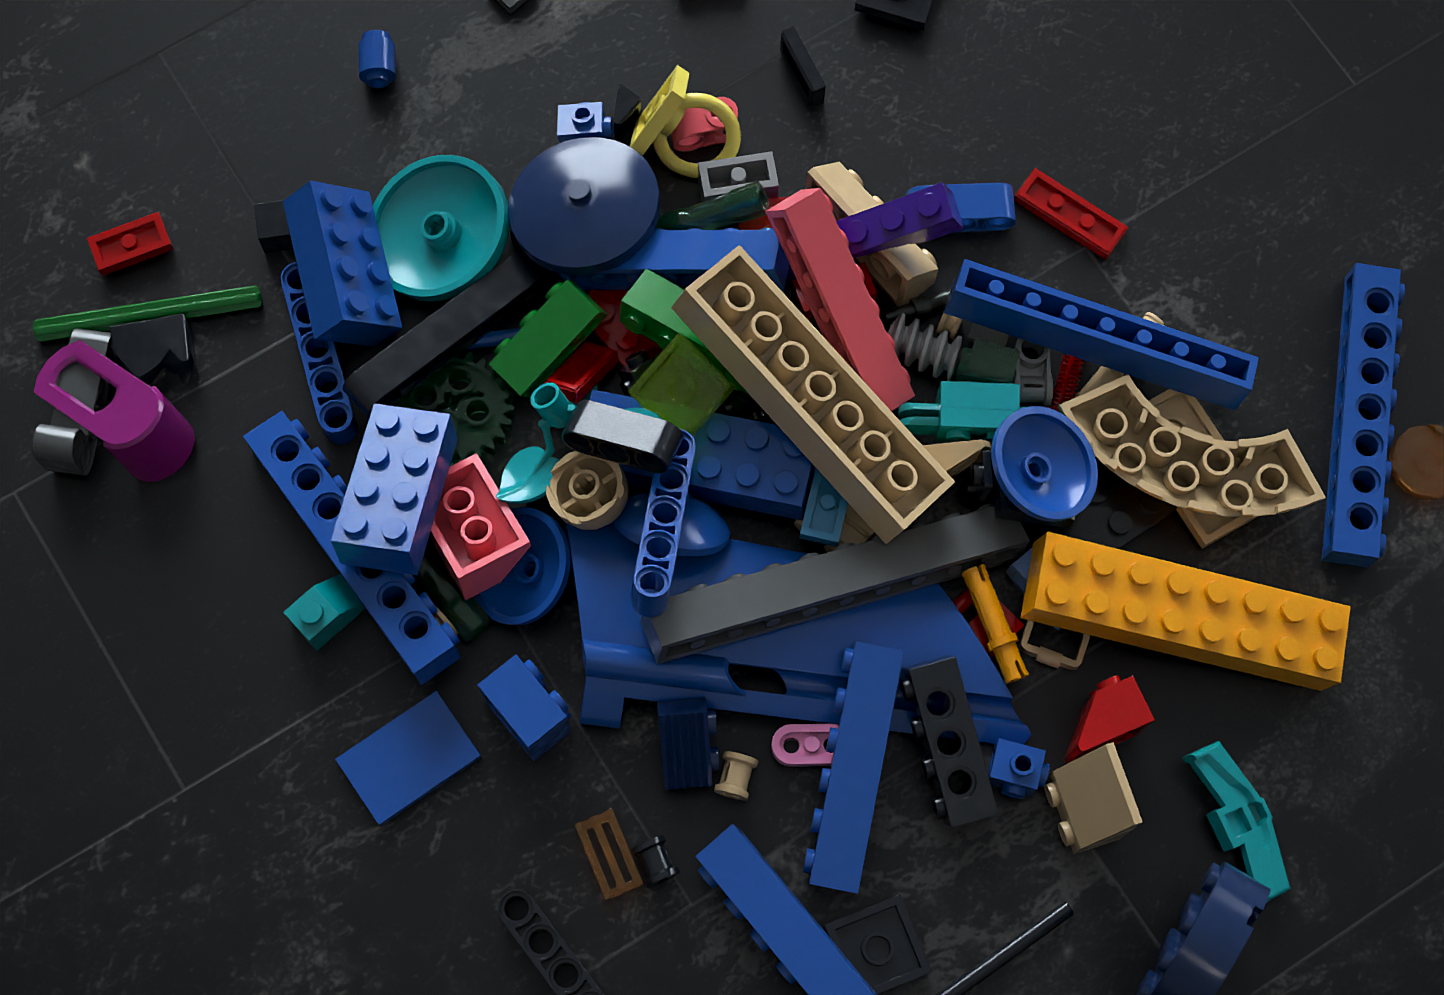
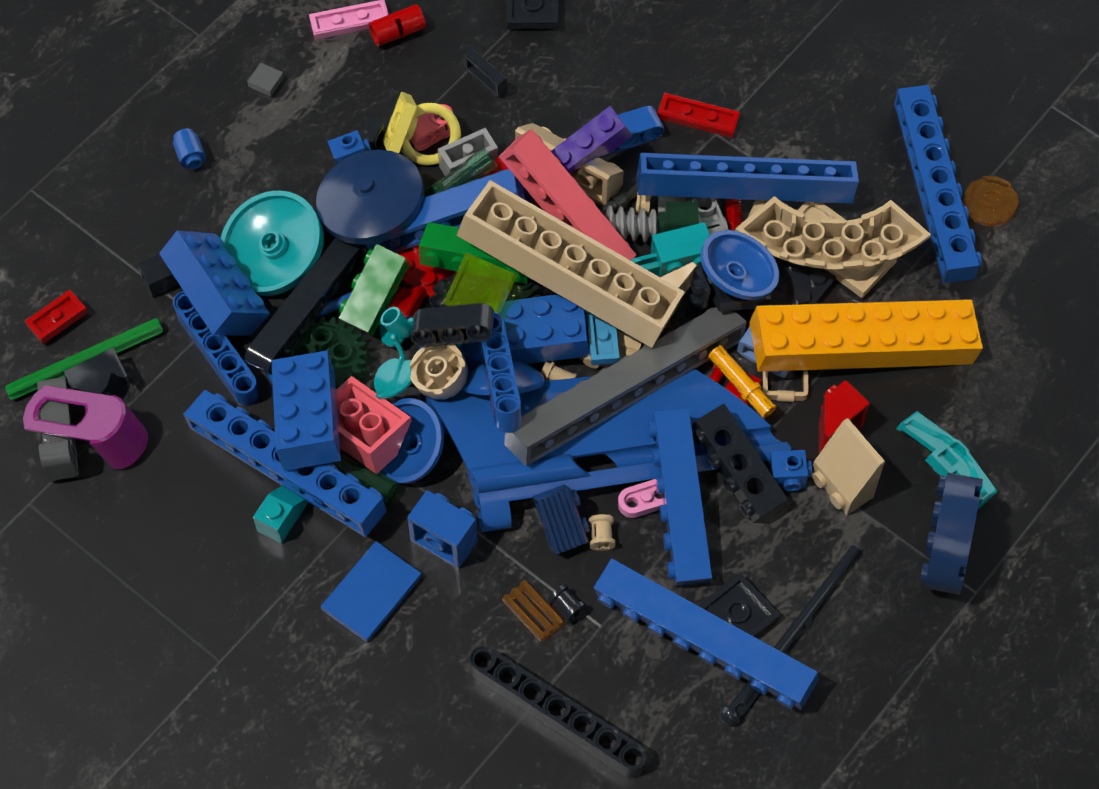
camera: 15 degrees left, 10 degrees down
(751, 530) = (553, 372): none -> tan pin

